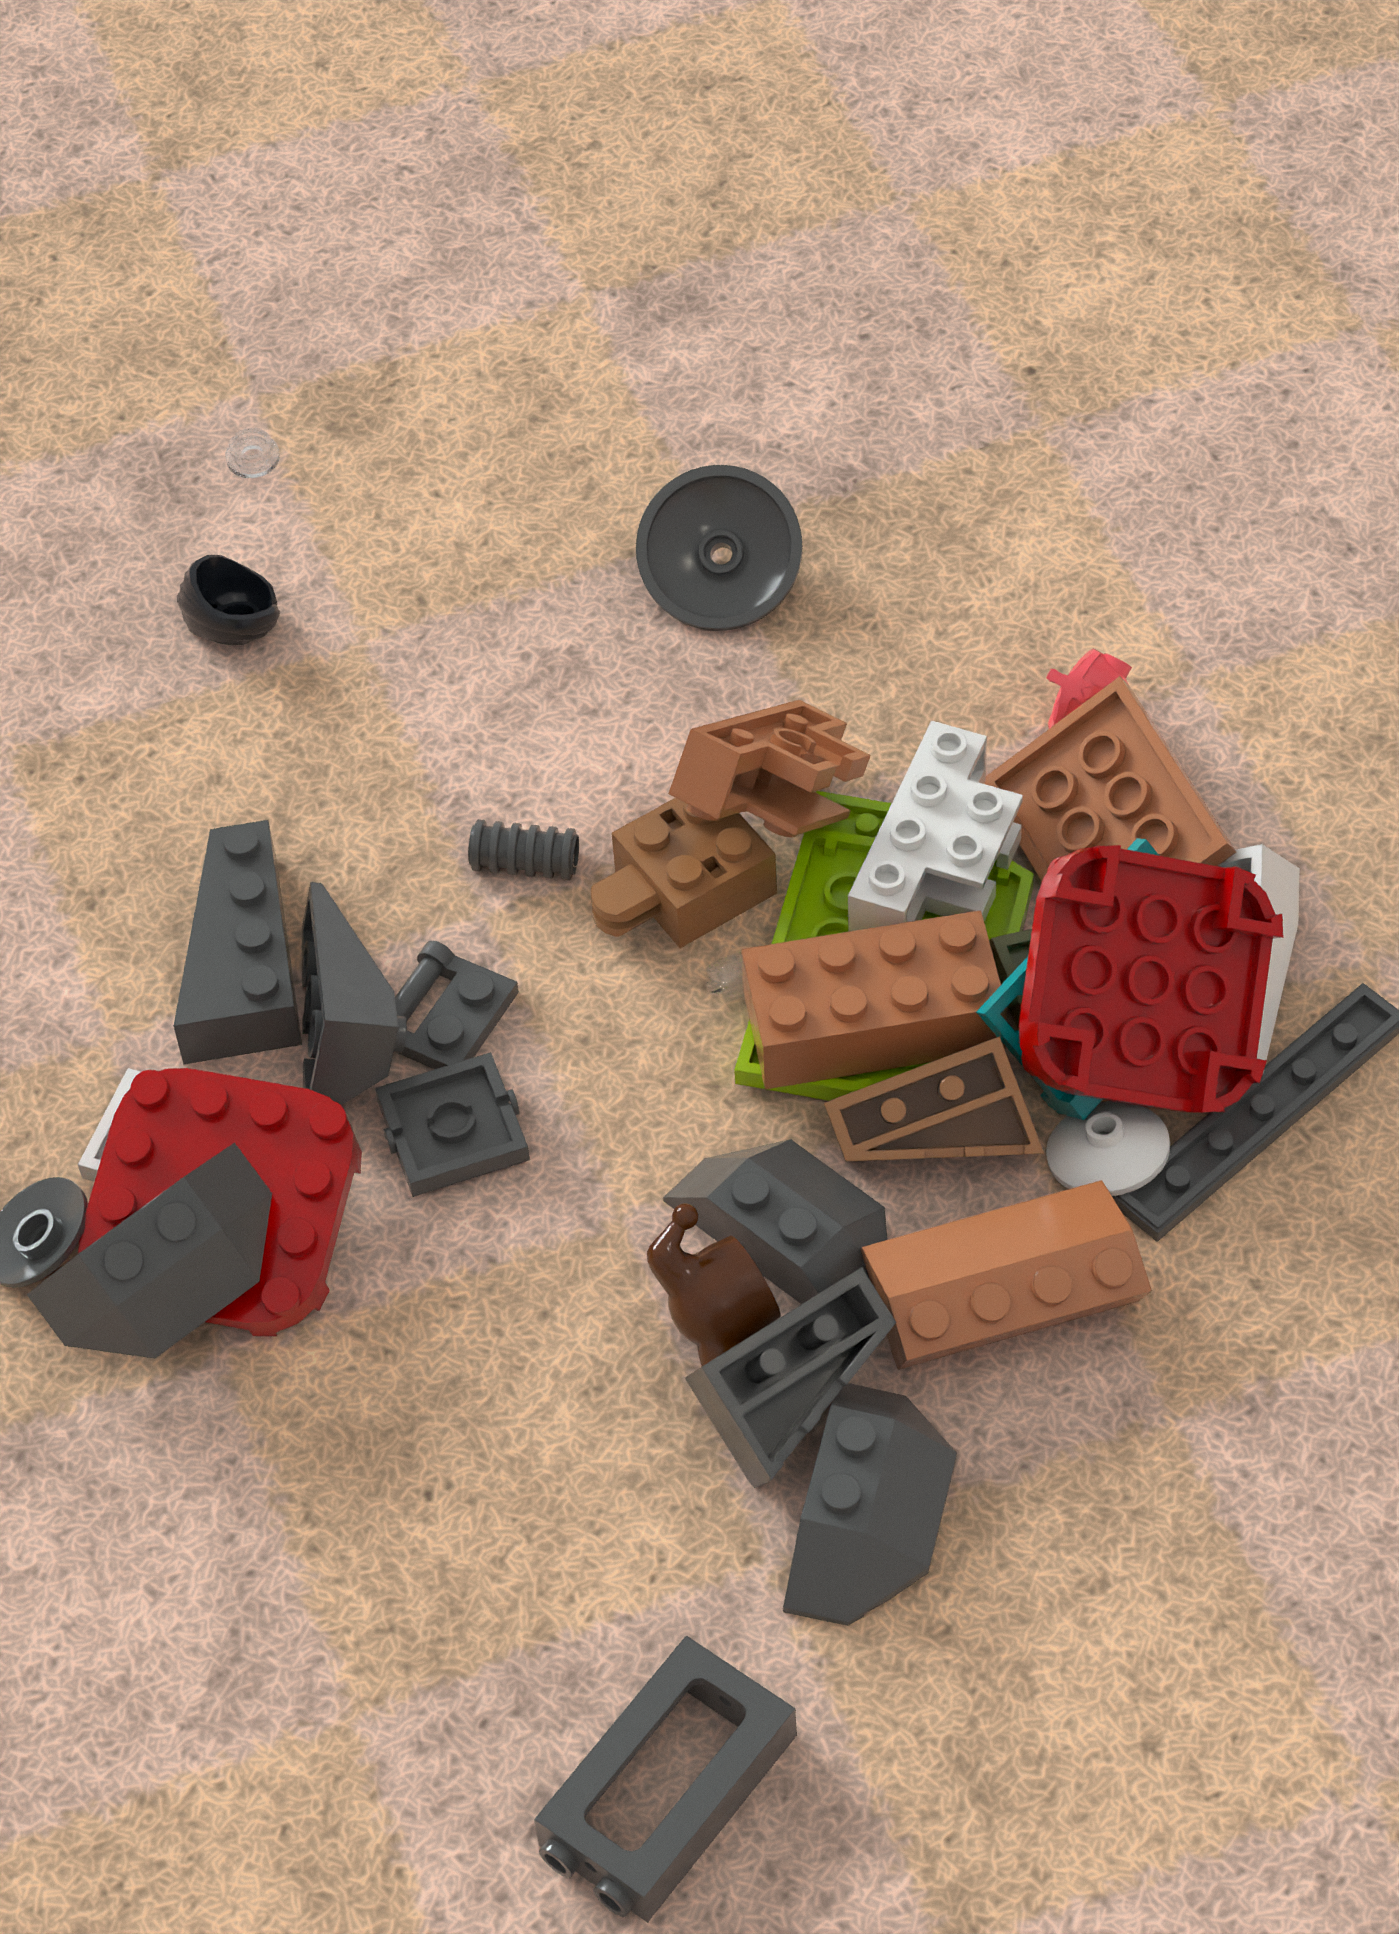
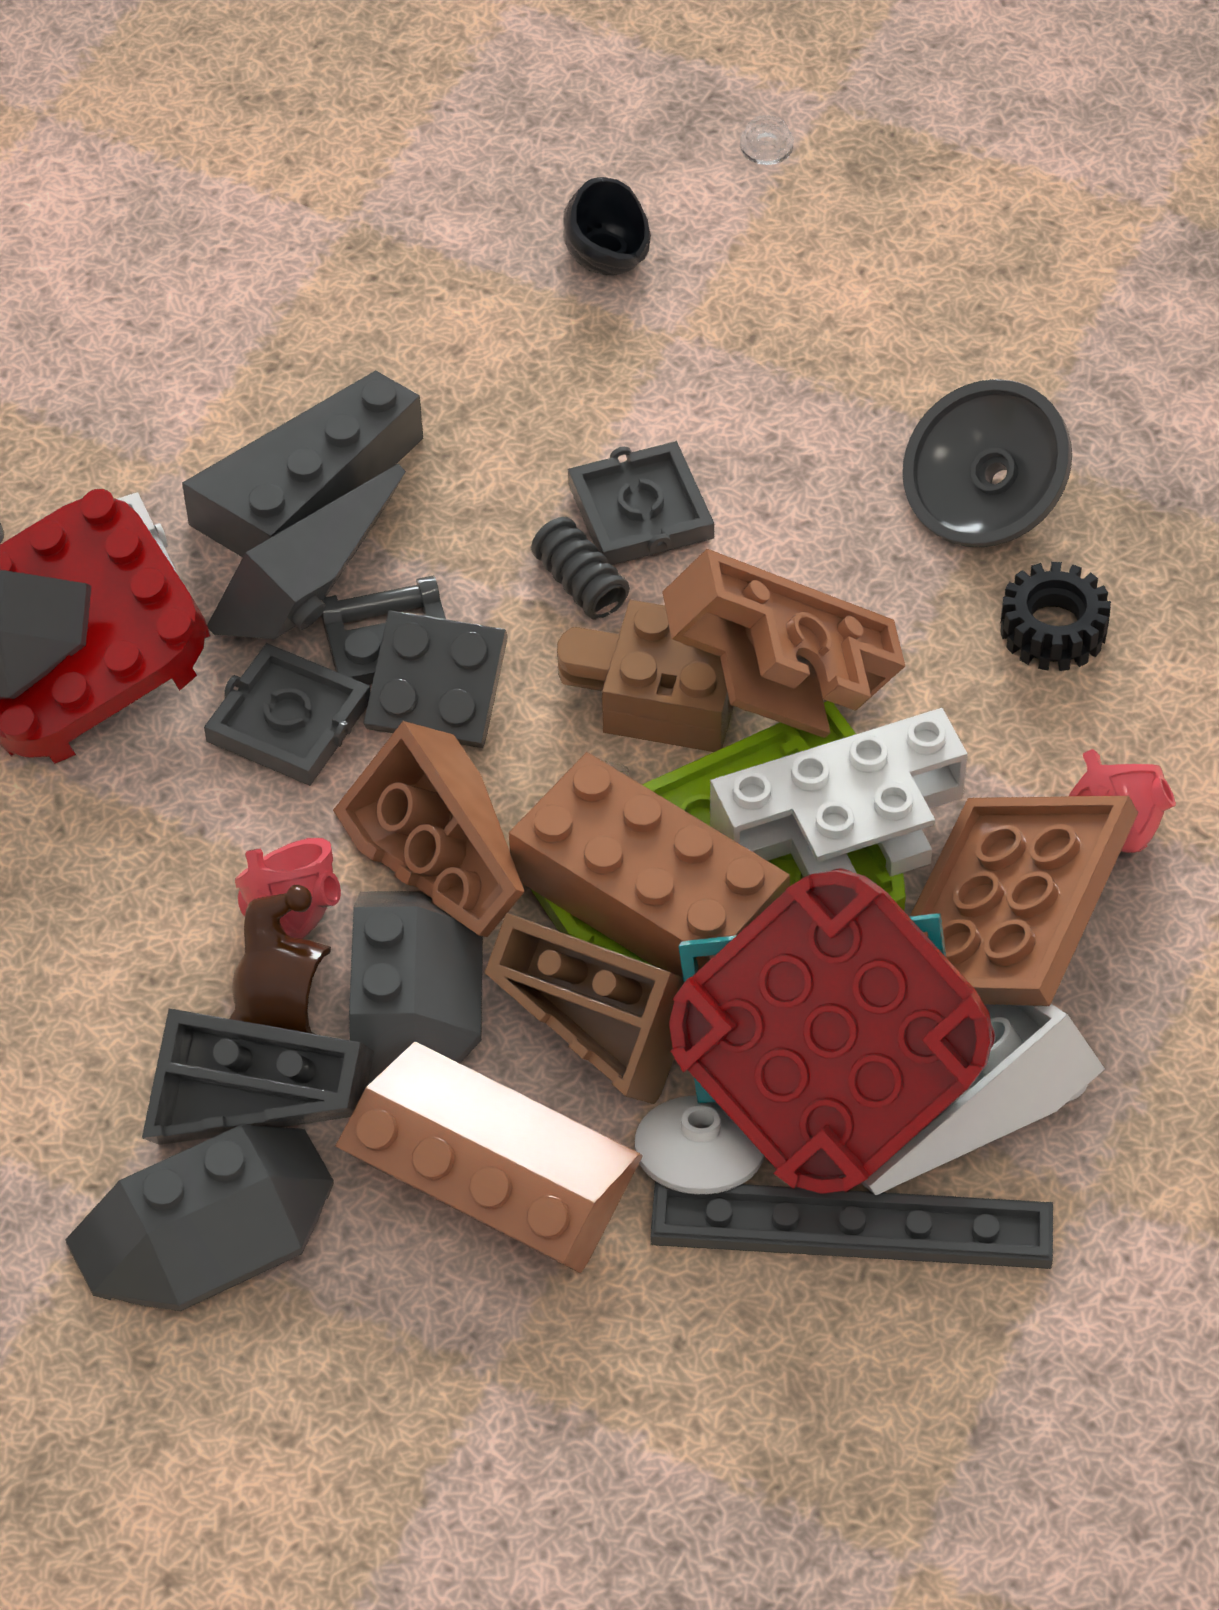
camera: 45 degrees right, 0 degrees up
(504, 770) = (640, 503): none -> dark grey plate
(530, 1007) = (436, 676): none -> dark grey plate
(618, 1226) = (297, 863): none -> coral helmet
(674, 1103) = (434, 826): none -> nougat wedge
(889, 639) = (1059, 590): none -> black tyre

